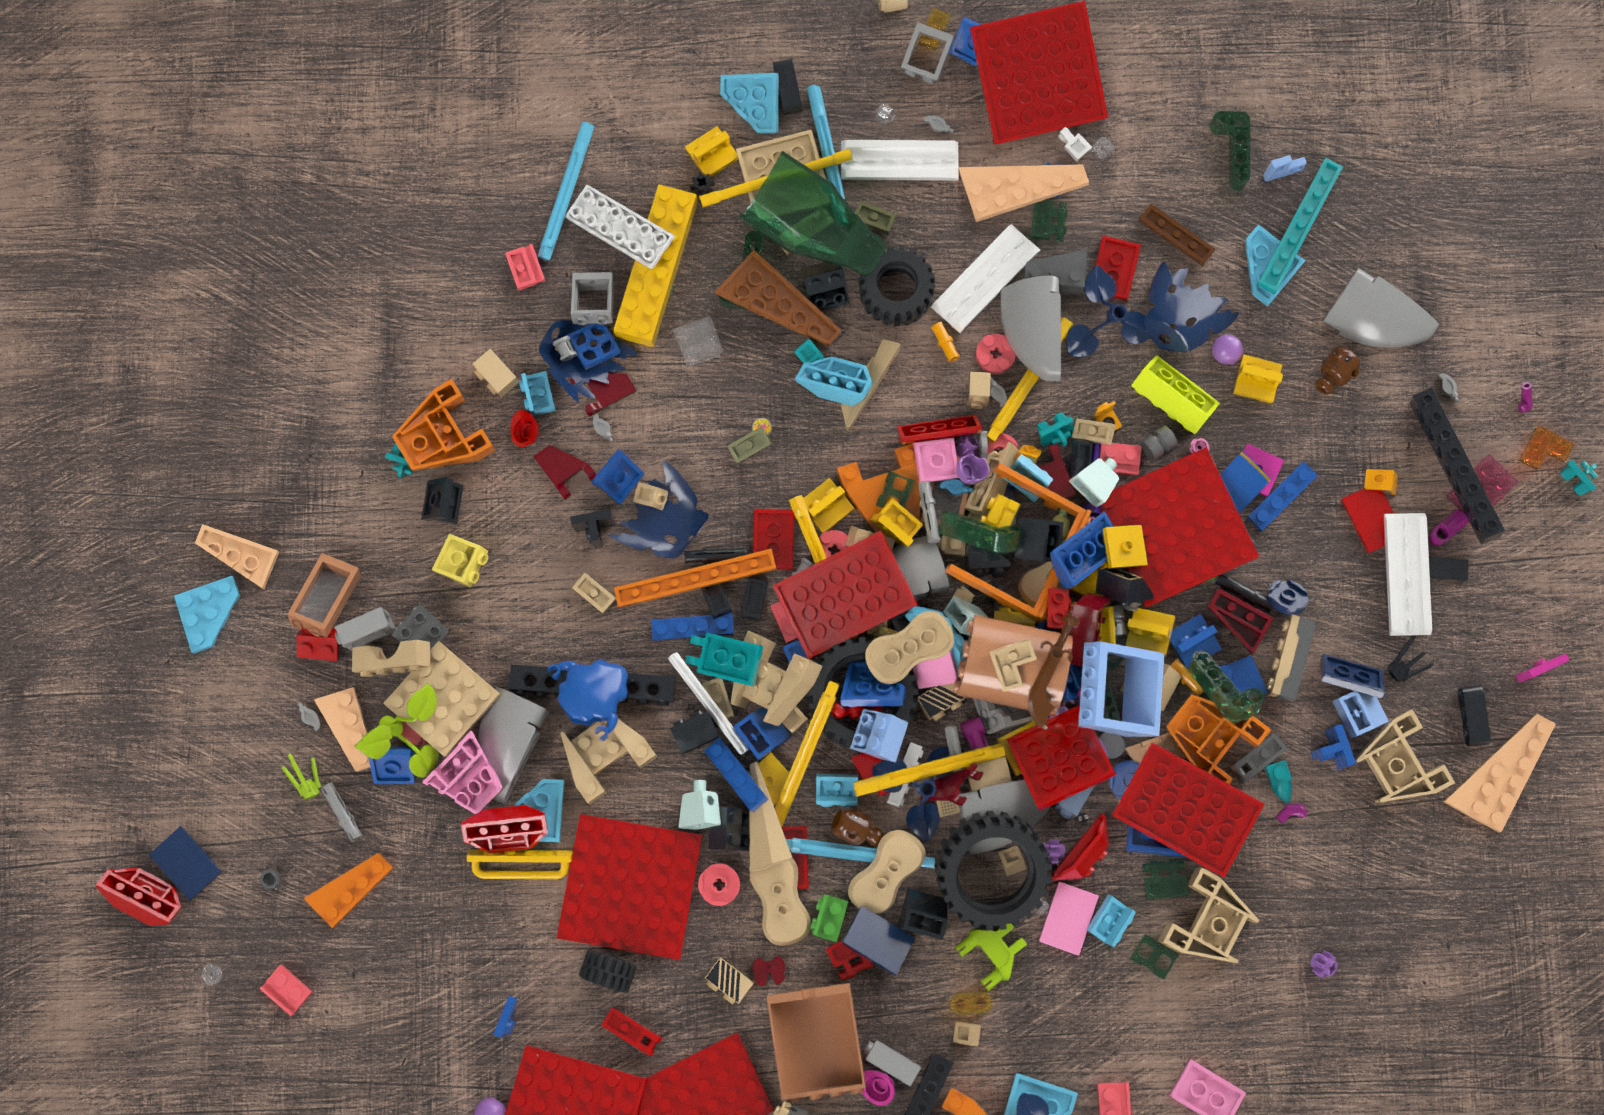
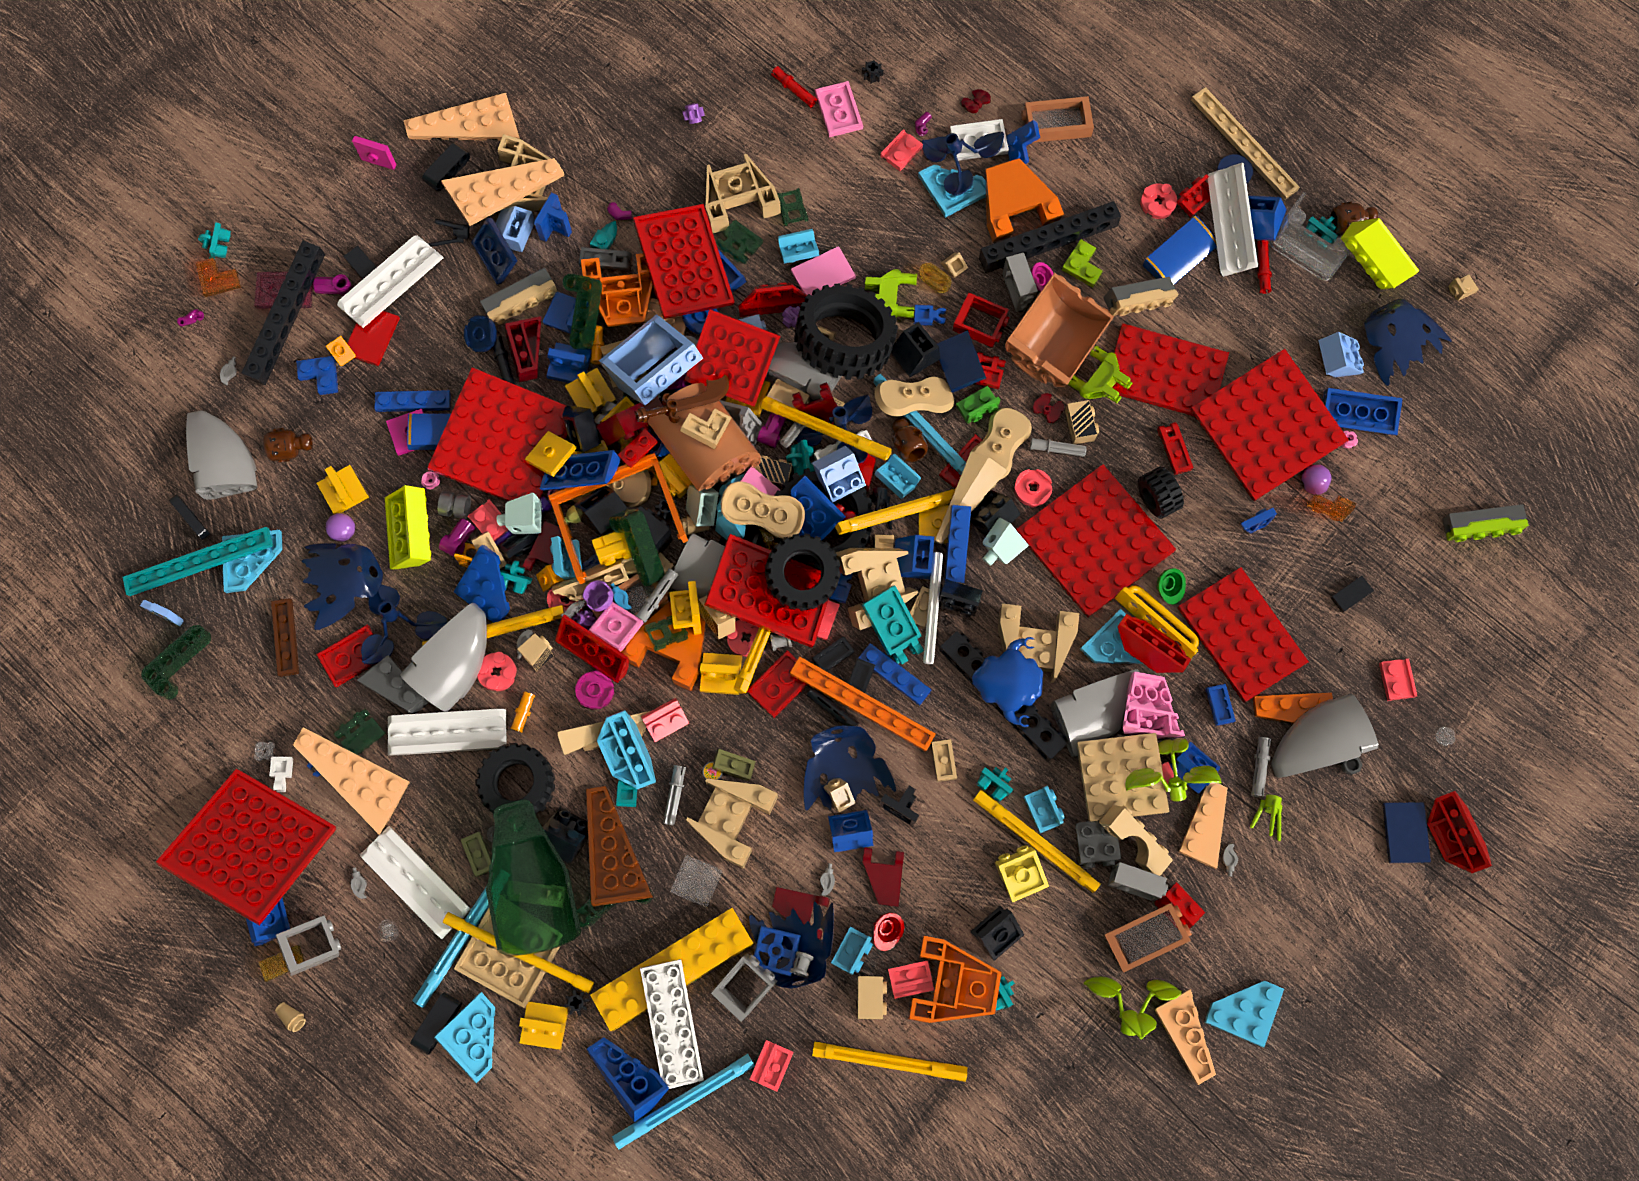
camera: 140 degrees left, 5 degrees down
(283, 517) = (1133, 1022): none -> lime plant
(307, 877) = (1325, 736): none -> light grey panel
(380, 1033) = (1352, 594): none -> black tile
(414, 835) = (1220, 705): none -> blue plate
(442, 344) = (883, 1060): none -> yellow piece
(443, 914) = (1242, 635): none -> red plate
(448, 1095) = (1336, 510): none -> clear orange plate
(471, 595) = (1036, 841): none -> yellow piece
(477, 411) = (911, 979): none -> coral plate
(484, 623) = (1044, 809): none -> medium azure bracket
(529, 611) = (1002, 789): none -> teal hips
(533, 899) = (1171, 585): none -> green piece
(615, 170) = (630, 1081): none -> blue wedge
(720, 404) = (726, 814): none -> tan wedge
(729, 940) = (1057, 447): none -> light grey axle
(742, 1038) = (1103, 379): none -> lime connector
(773, 385) = (674, 795): none -> light grey axle
(811, 605) = (808, 546): none -> black tyre
(833, 431) = (665, 719): none -> plate
(836, 759) = (880, 497): none -> black plant
(909, 406) = (594, 690): none -> dark pink tile
(916, 992) = (984, 306): none -> red window
(927, 730) = (800, 457): none -> teal hips
(946, 960) = (926, 315): none -> blue plate
(1069, 403) = (485, 585): none -> blue plate
(1129, 417) = (455, 541): none -> magenta piece
(1266, 1077) = (789, 82): none -> red pin
(1346, 252) = (189, 516): none -> black beam
(1379, 455) = (321, 368): none -> blue plate
(1407, 720) = (493, 190): none -> light nougat wing

